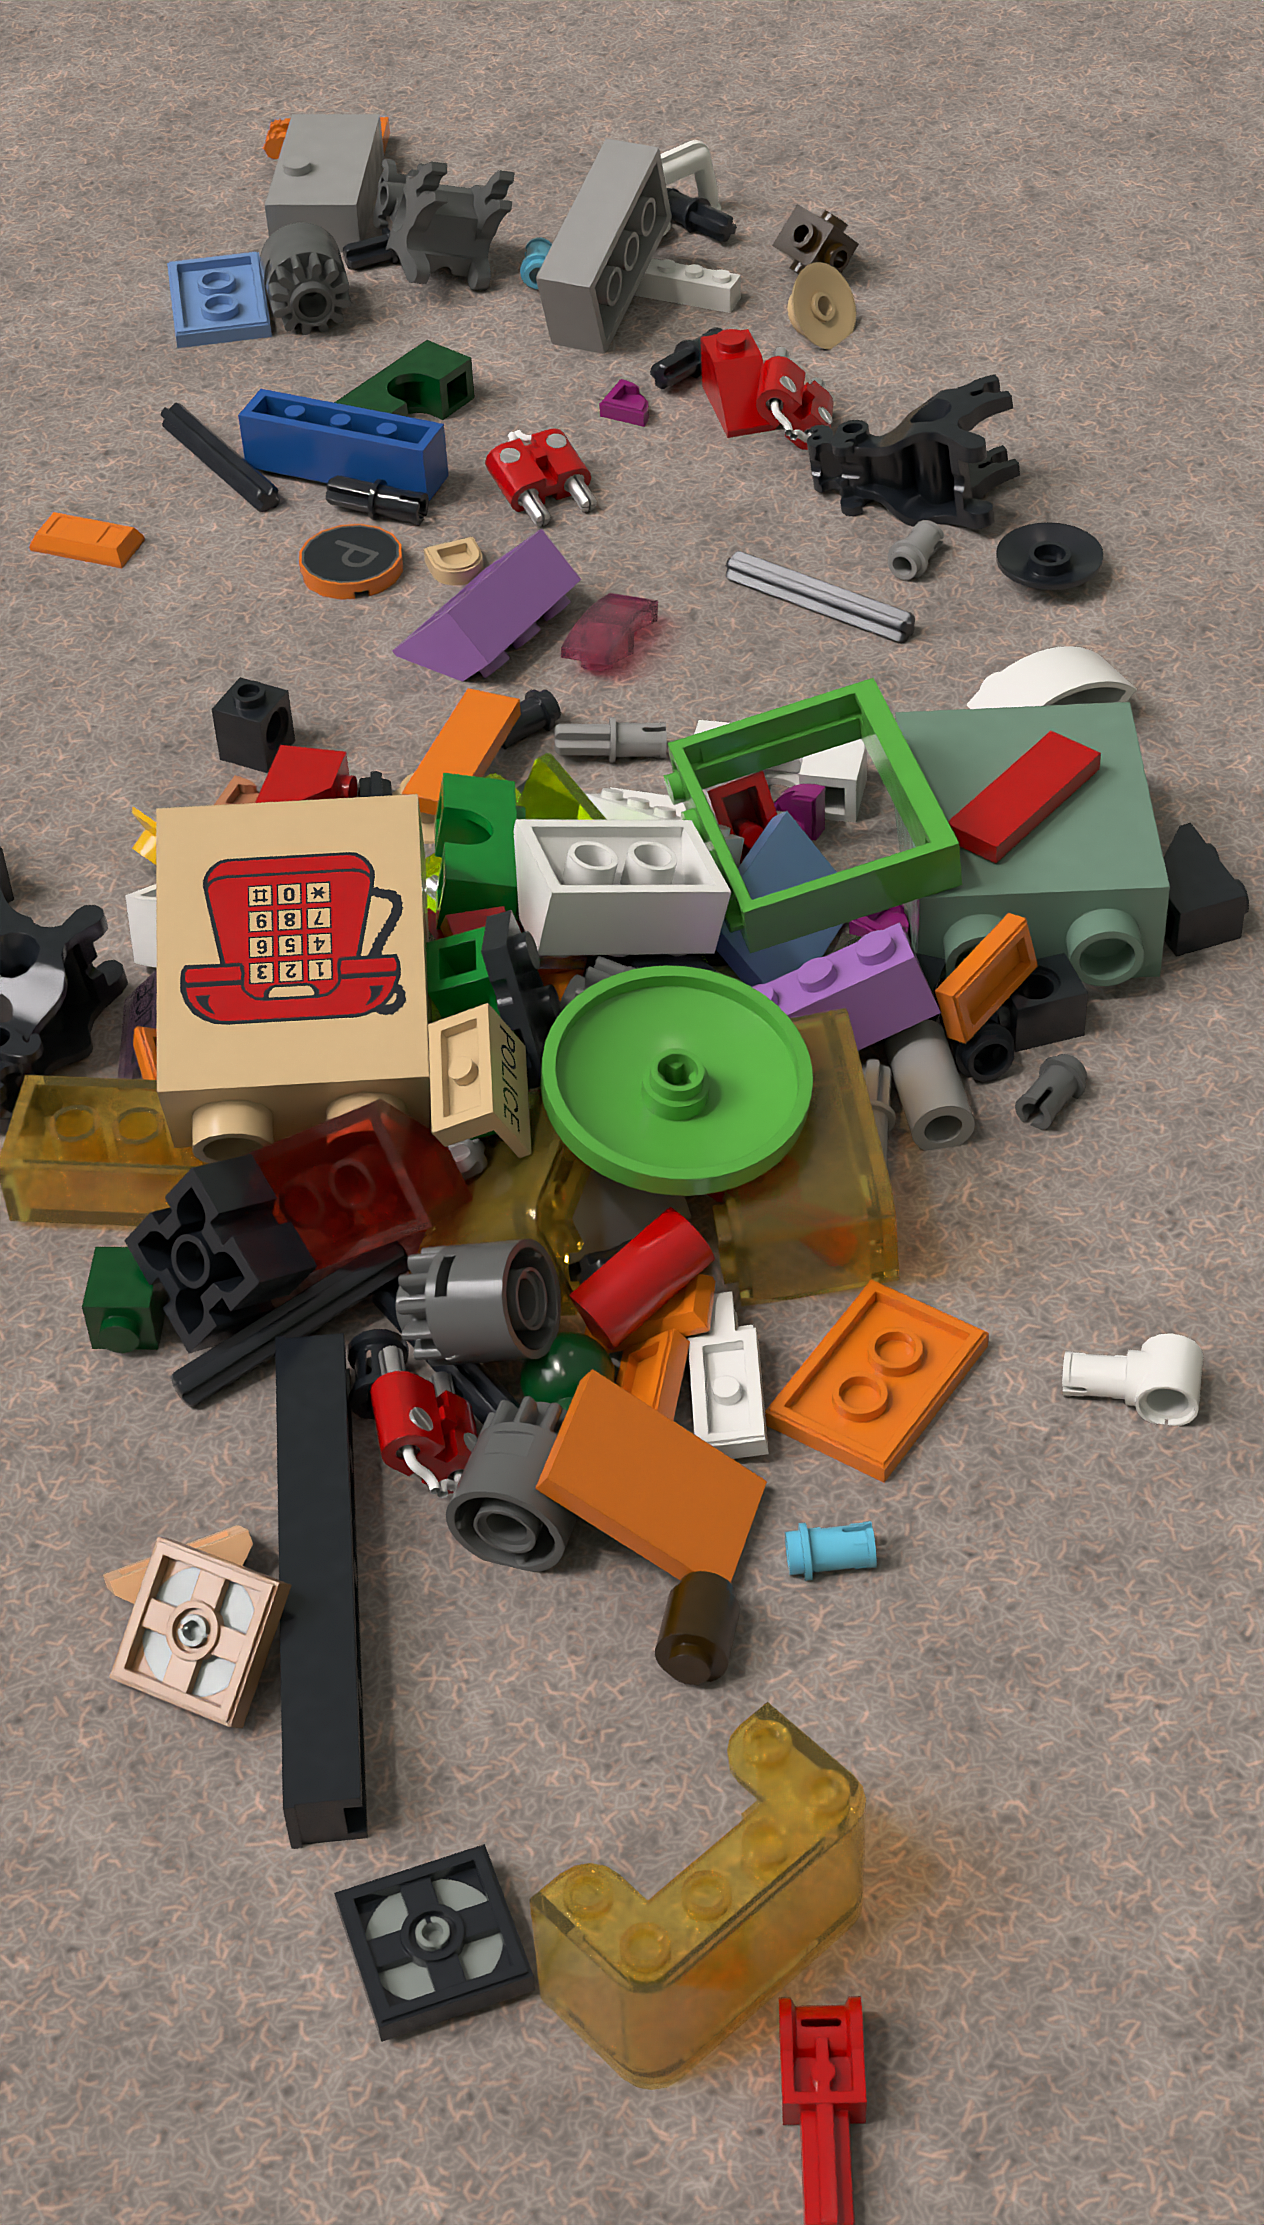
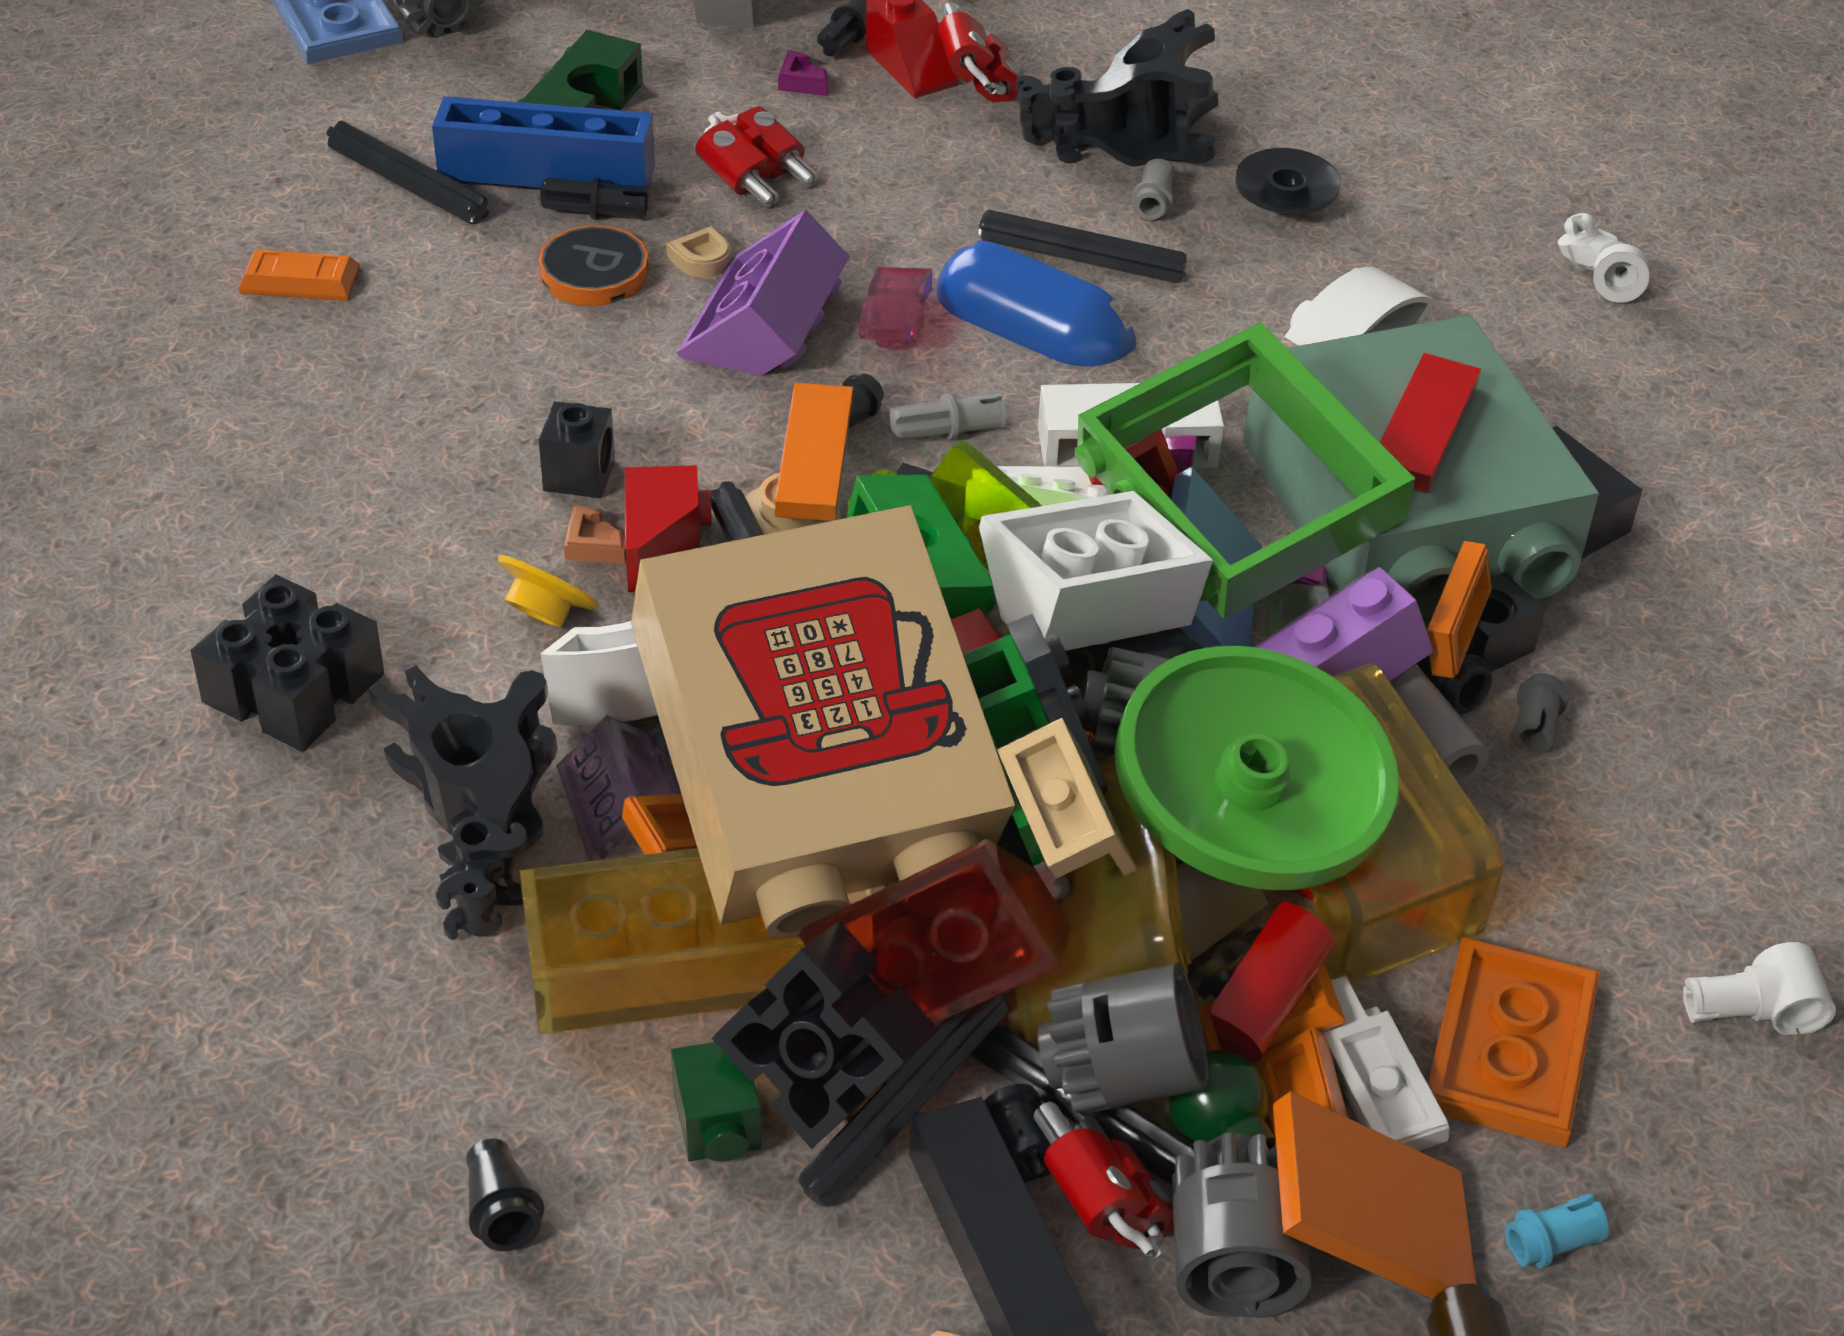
camera: 20 degrees left, 0 degrees up
(740, 646) = (1033, 305): none -> blue brick

